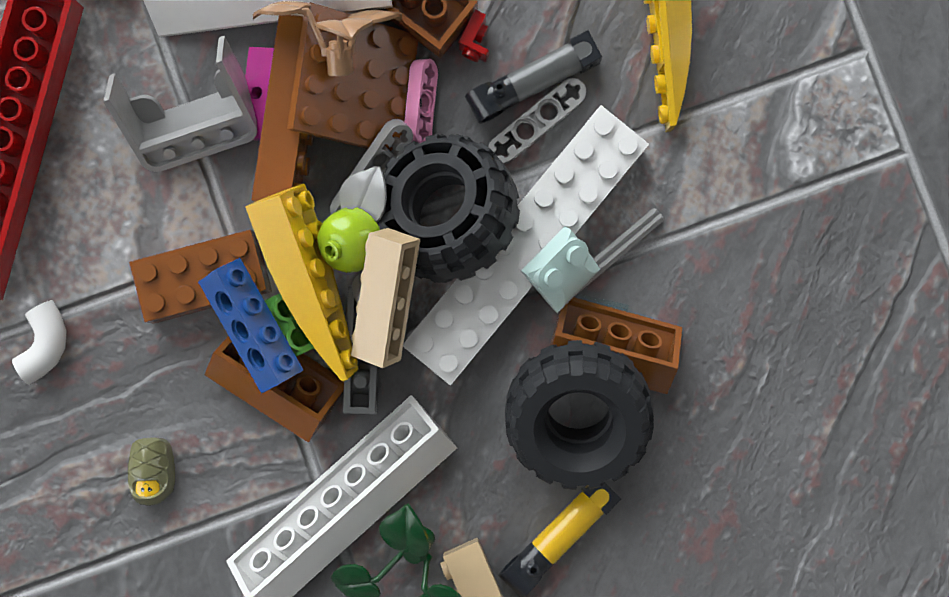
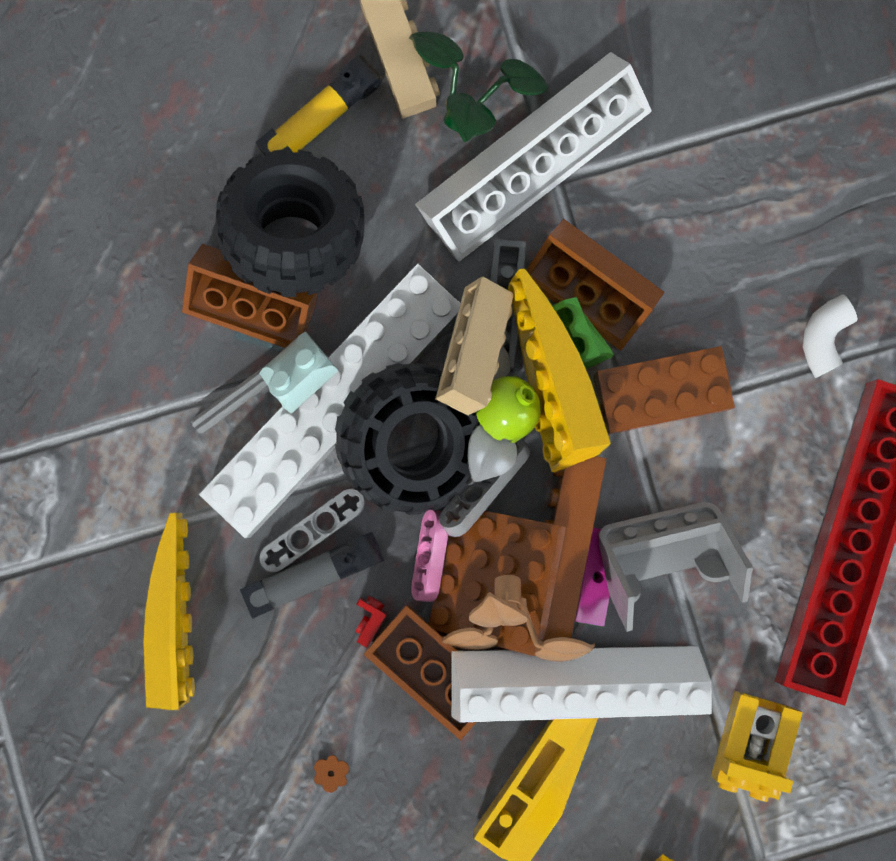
camera: 175 degrees left, 0 degrees up
(151, 470) = (722, 202): olive piece -> none
(250, 325) = (612, 330): blue brick -> none

